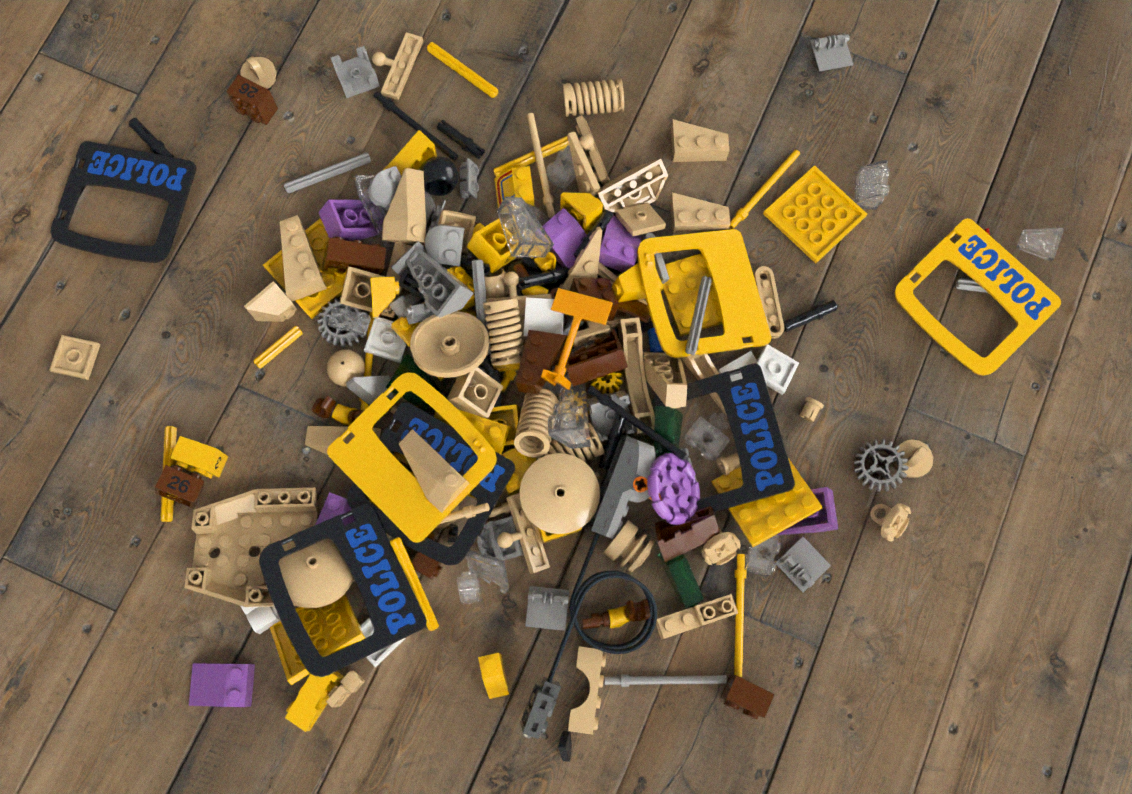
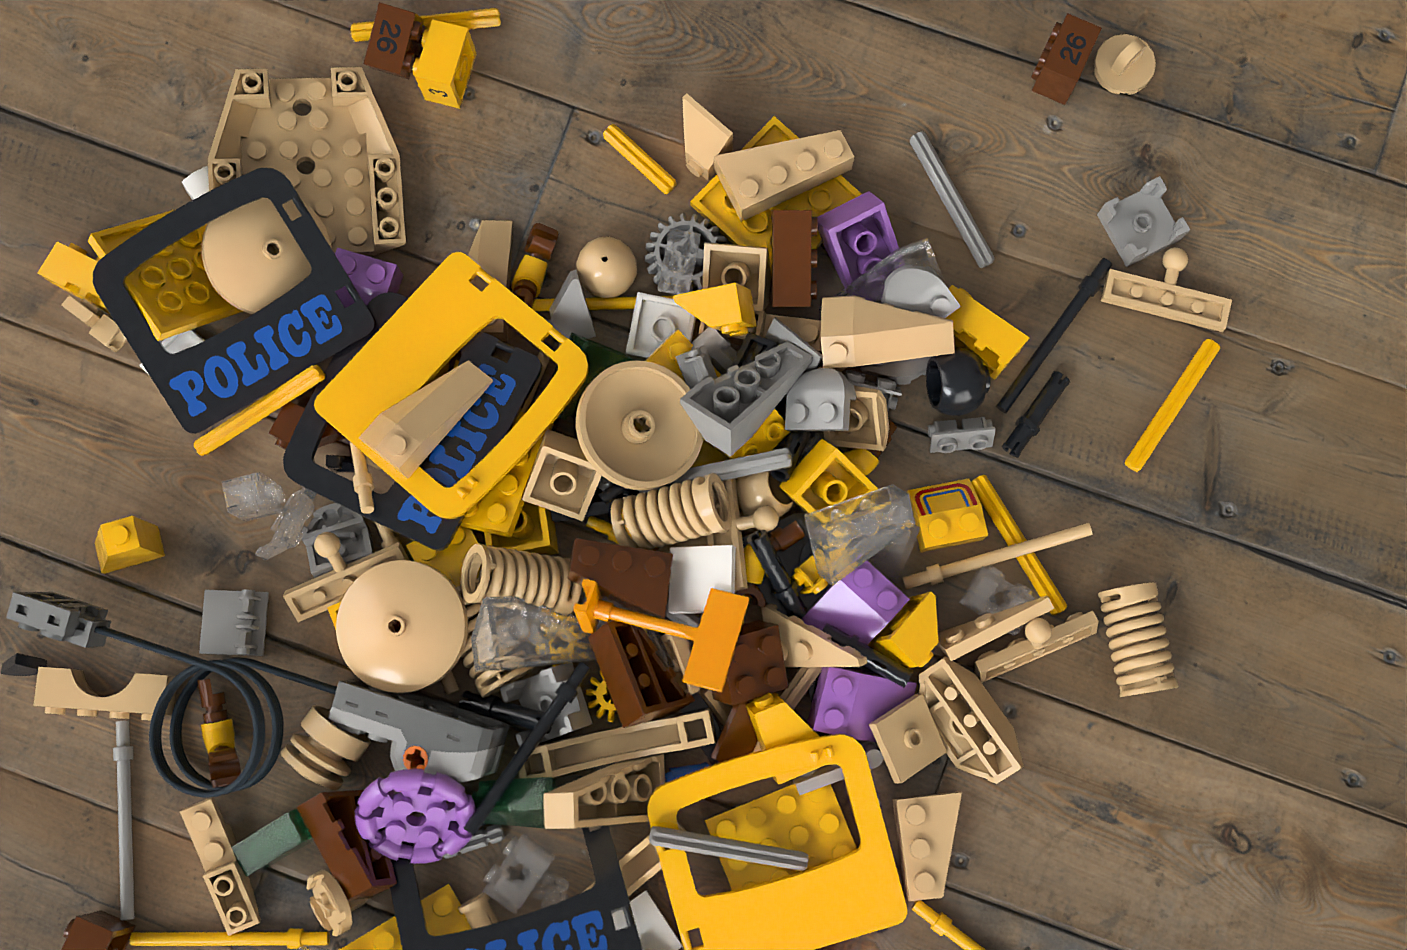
camera: 90 degrees right, 5 degrees up
(221, 685) = (109, 148): medium lavender slope -> none
(697, 143) = (1069, 836): tan wedge -> none

